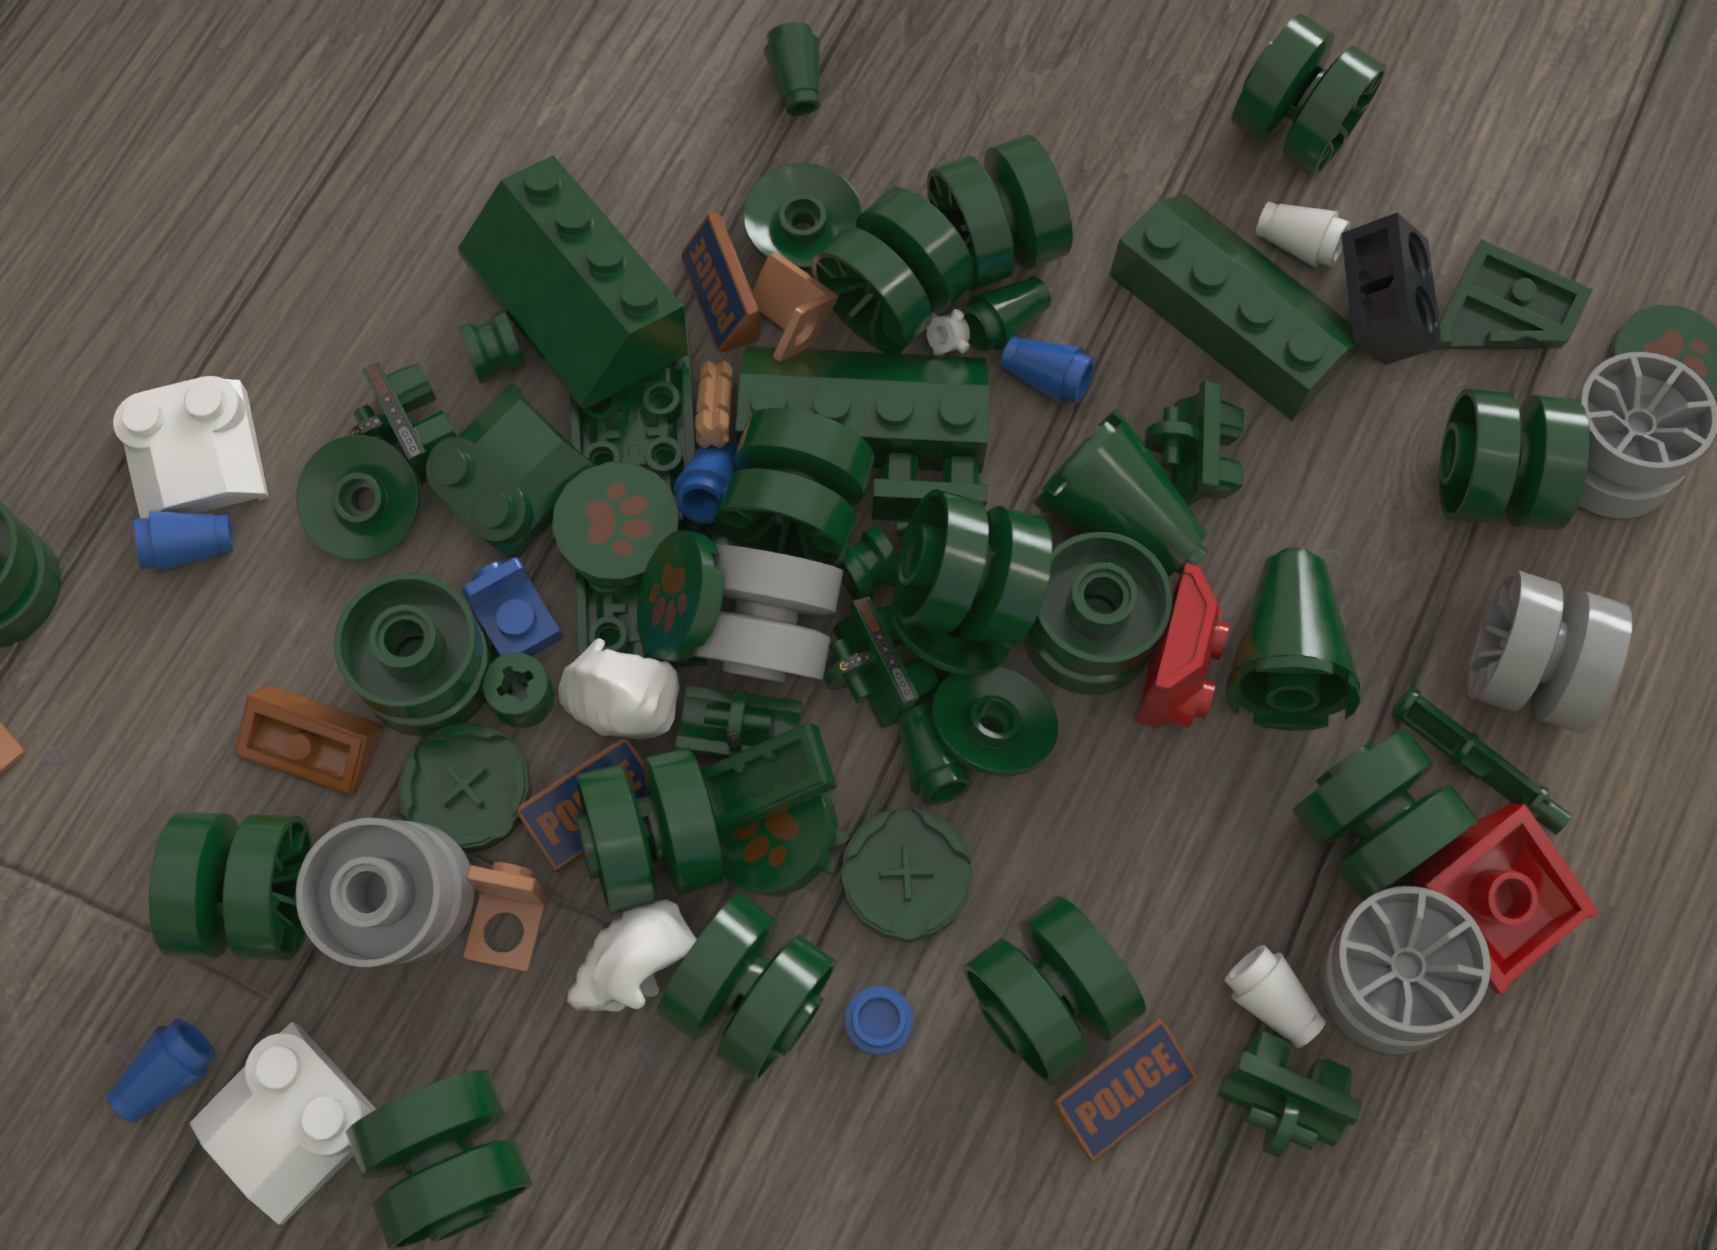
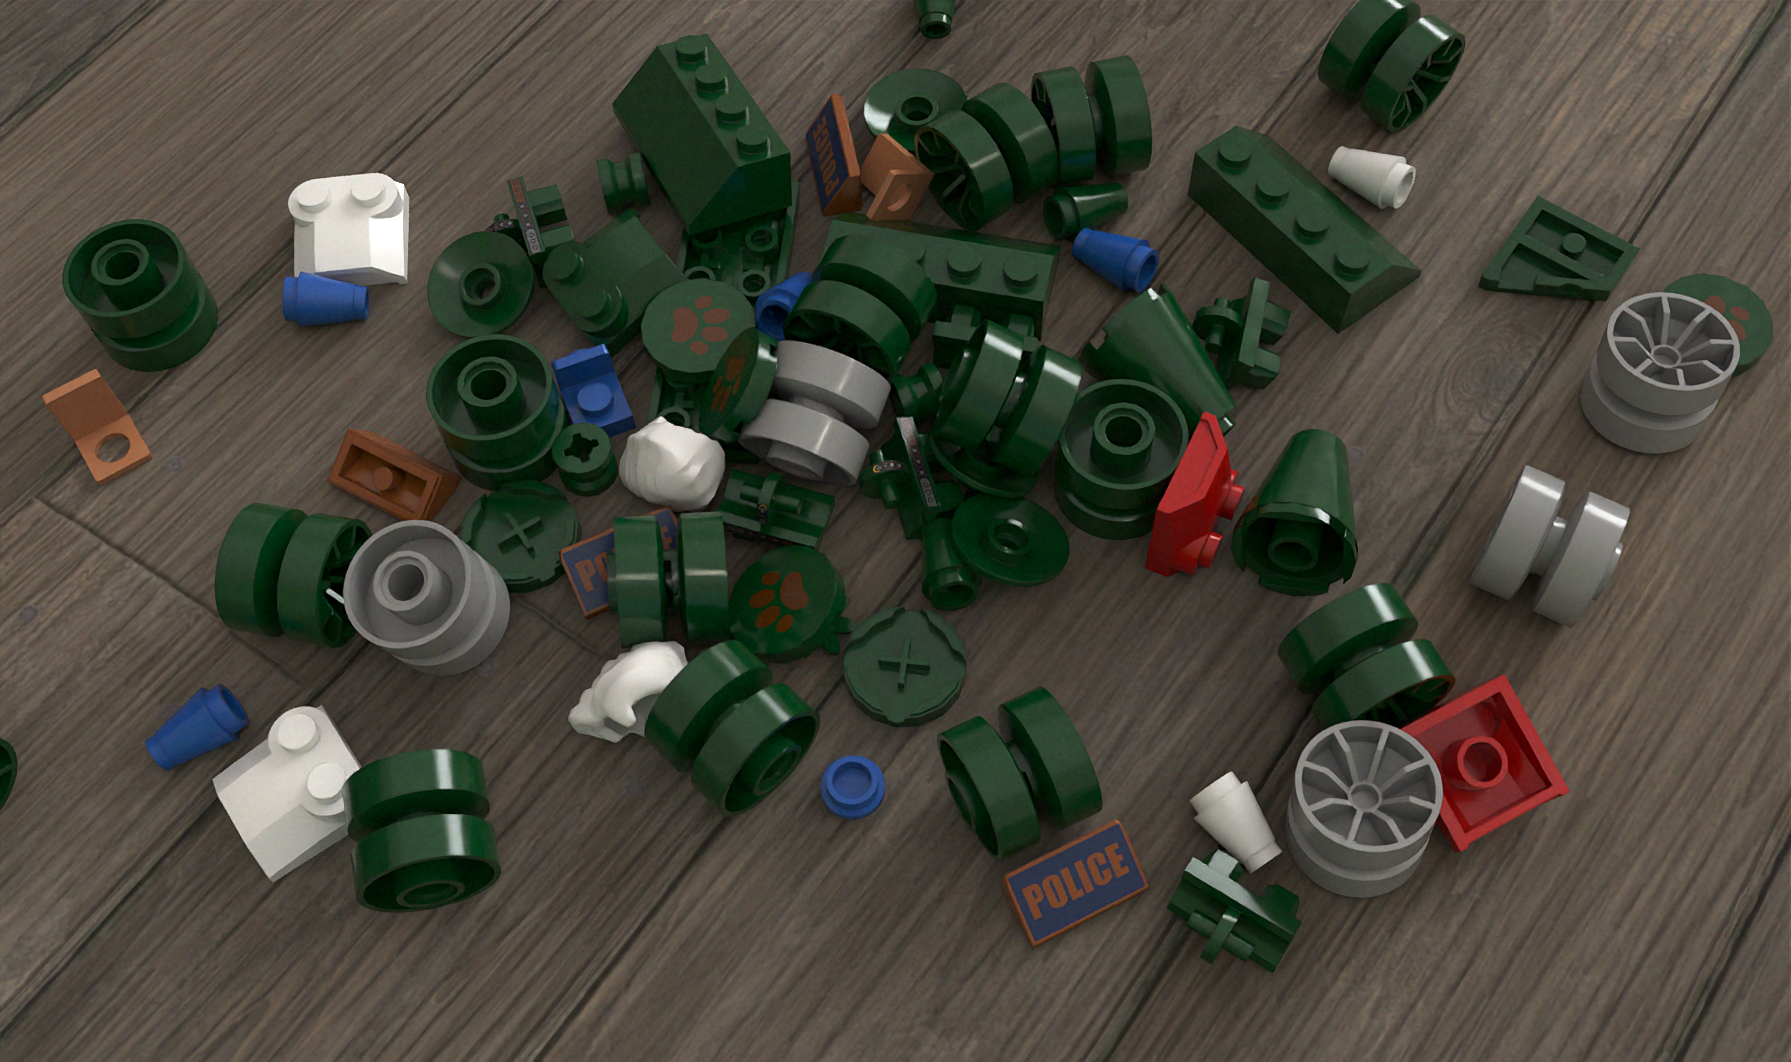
camera: 15 degrees right, 10 degrees down
(505, 891) = (537, 625): nougat bracket -> none
(714, 404) = (806, 248): medium nougat axle -> none
(768, 778) = (785, 552): dark green plate -> none
(948, 333) = (1029, 219): white piece -> none
(1391, 289) = (1445, 226): black brick -> none
(1478, 758) = (1471, 642): dark green piece -> none
(1513, 459) = (1556, 381): dark green wheel -> none

